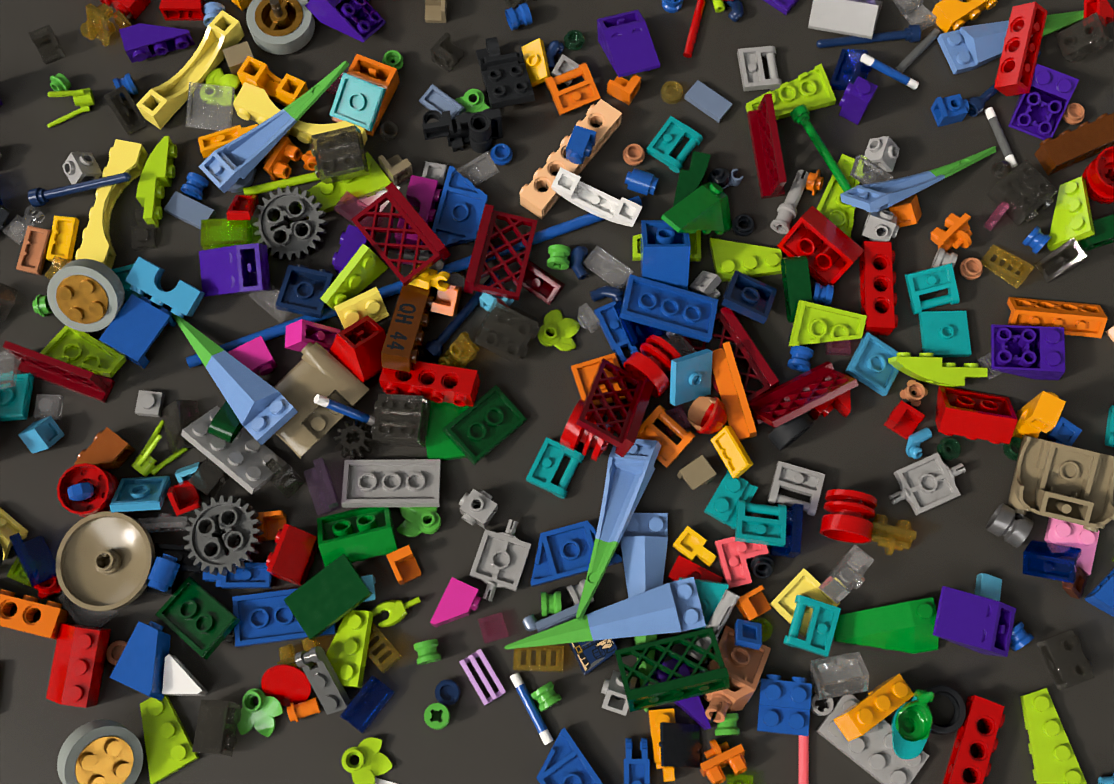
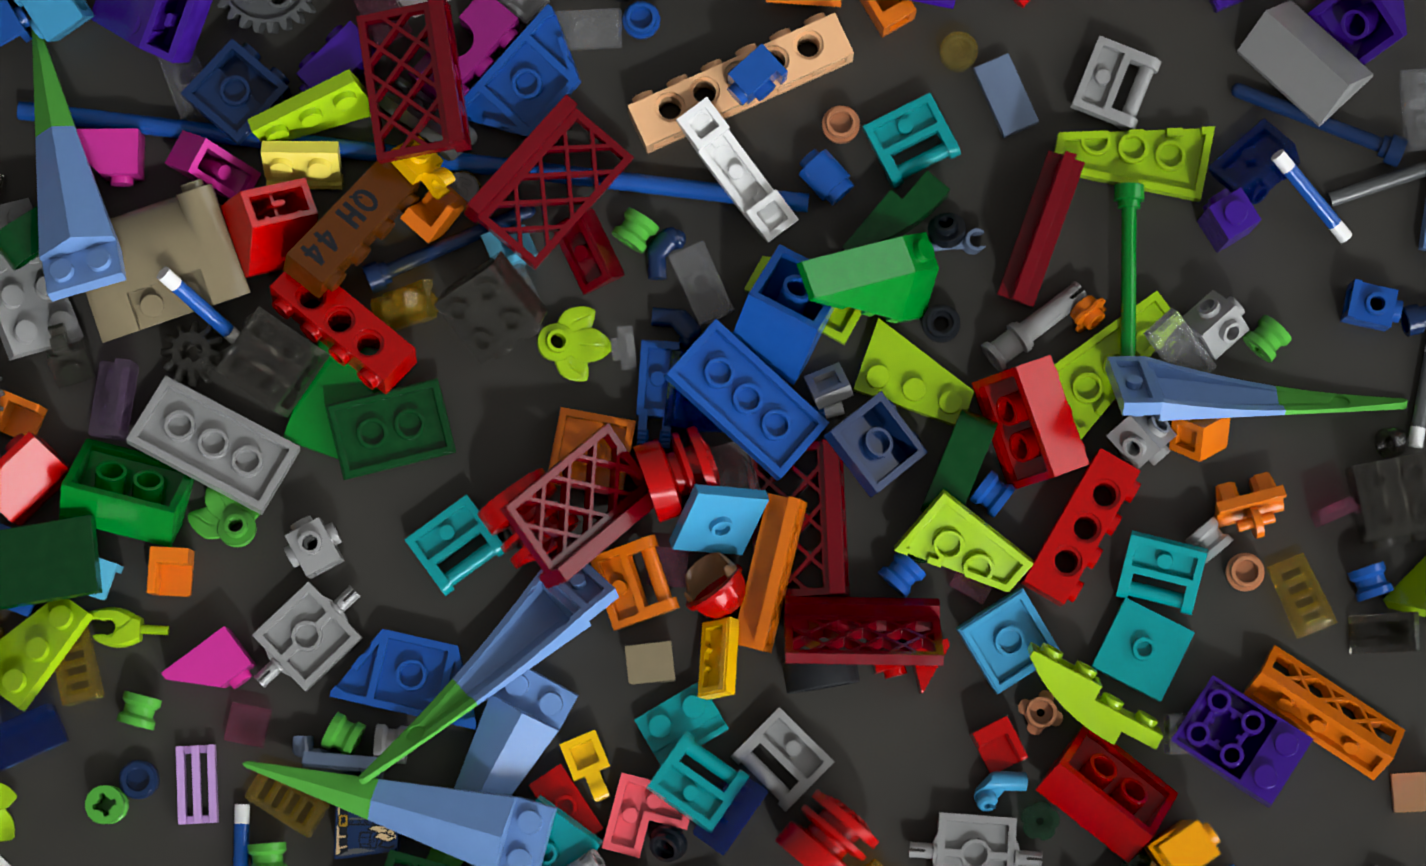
camera: 30 degrees right, 10 degrees up
(910, 149) = (1267, 338): none -> bright green wheel

